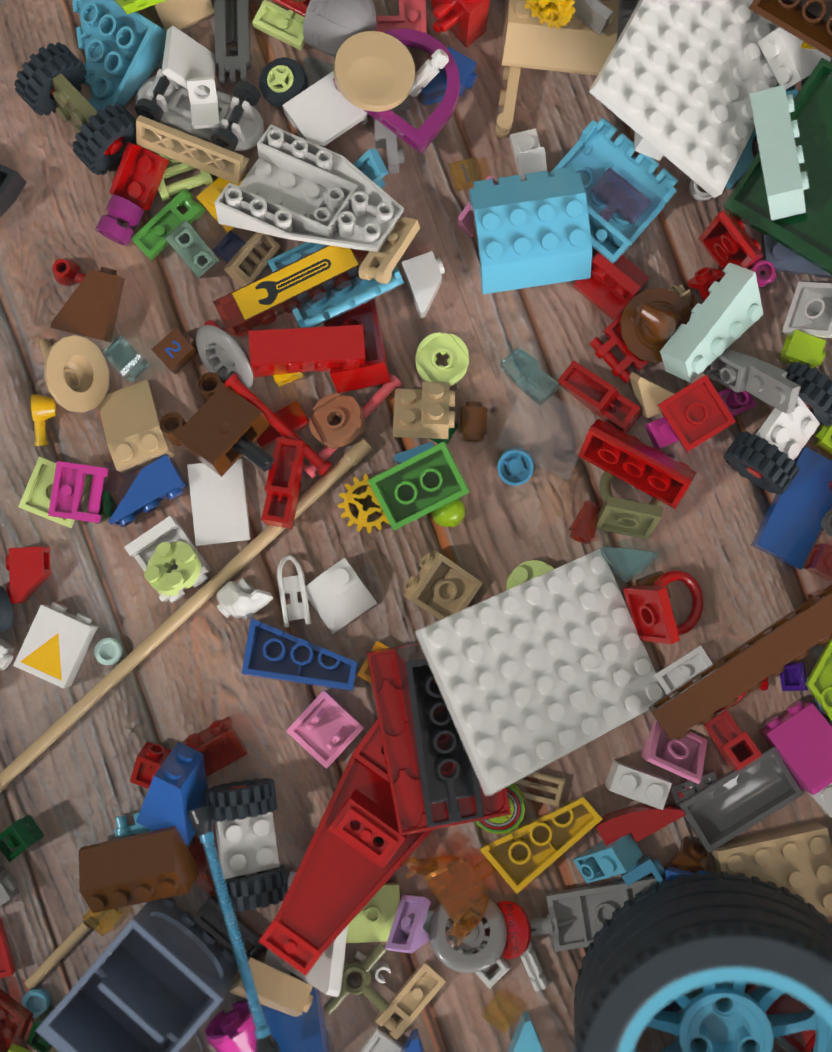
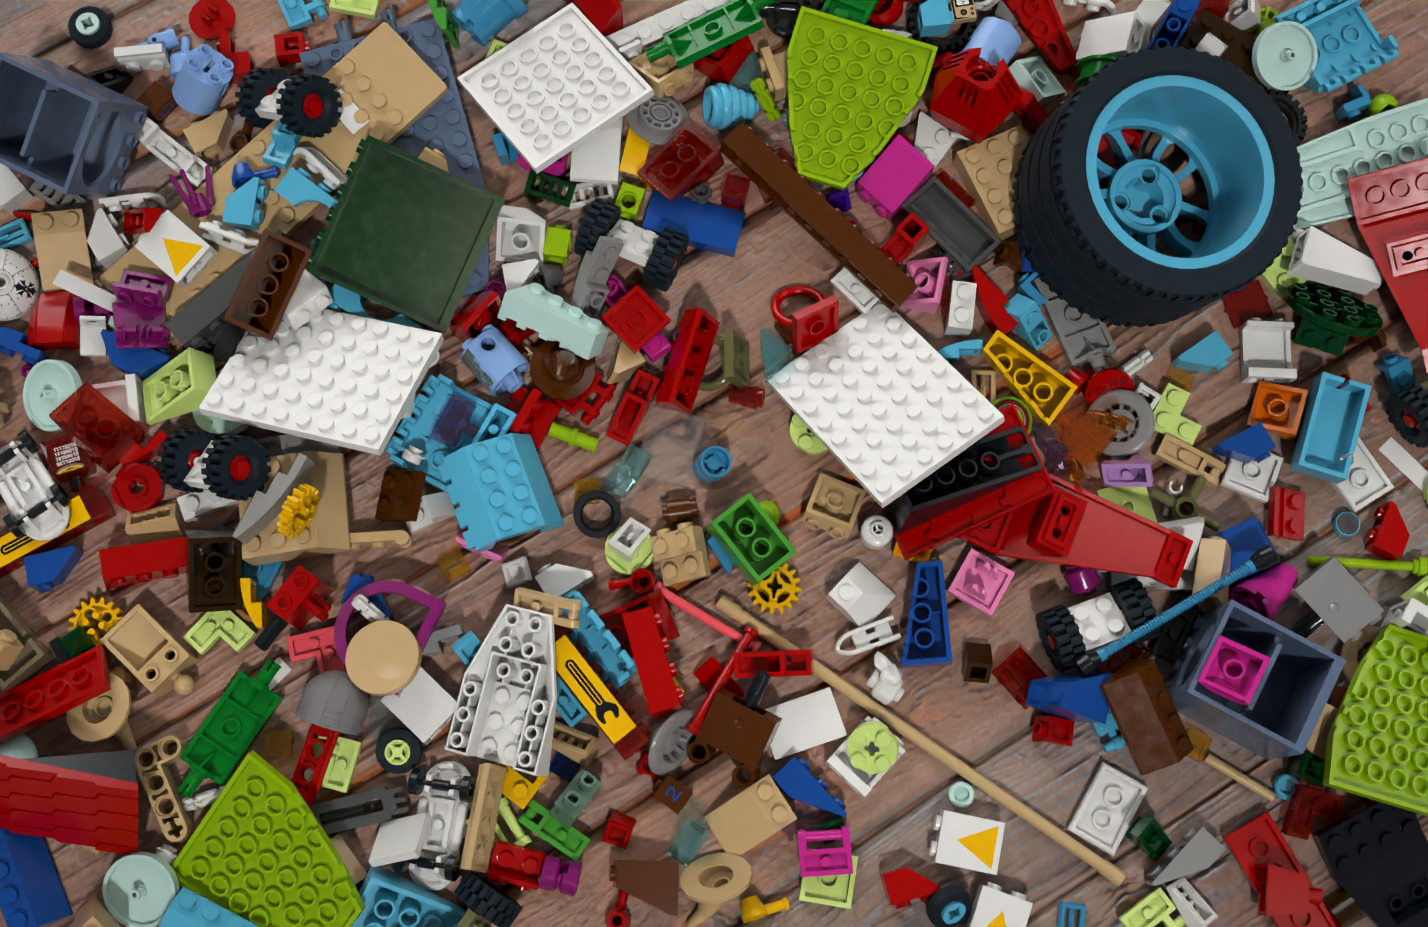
camera: 110 degrees left, 10 degrees down
(58, 803) = (1107, 808): none -> white tile
(141, 979) = (1233, 671): none -> dark pink slope
(155, 291) = (619, 829): none -> red slope
(203, 108) = (439, 815): white bracket -> none
(240, 703) = (977, 662): none -> dark brown brick
(299, 839) = (1081, 580): none -> magenta head
(347, 430) = (707, 616): nougat plate -> none
(398, 618) = (869, 536): none -> white head
(405, 357) = (635, 582): none -> red bar
(443, 237) = (516, 572): none -> white tile
(448, 847) = (1054, 452): none -> plate
(450, 358) = (629, 539): none -> white slope
(467, 990) = (1168, 415): none -> yellowish green plate
(468, 326) = (593, 532): none -> black tyre
(516, 328) = (582, 486): none -> clear yellow tile
(529, 899) = (1079, 378): none -> red bar
(550, 128) = (400, 496): none -> reddish brown plate
(579, 325) = (573, 437): none -> lime pin
(588, 761) = (964, 348): none -> medium azure slope
(592, 147) = (412, 454): none -> white plate
(659, 772) = (945, 293): none -> clear red piece
(680, 253) = (494, 361): none -> light blue cylinder
(766, 337) = (550, 277): none -> dark grey bar
(776, 302) = (520, 273): none -> white slope
(778, 151) = (395, 292): light aqua wedge -> none
(782, 816) = (956, 189): none -> clear red axle

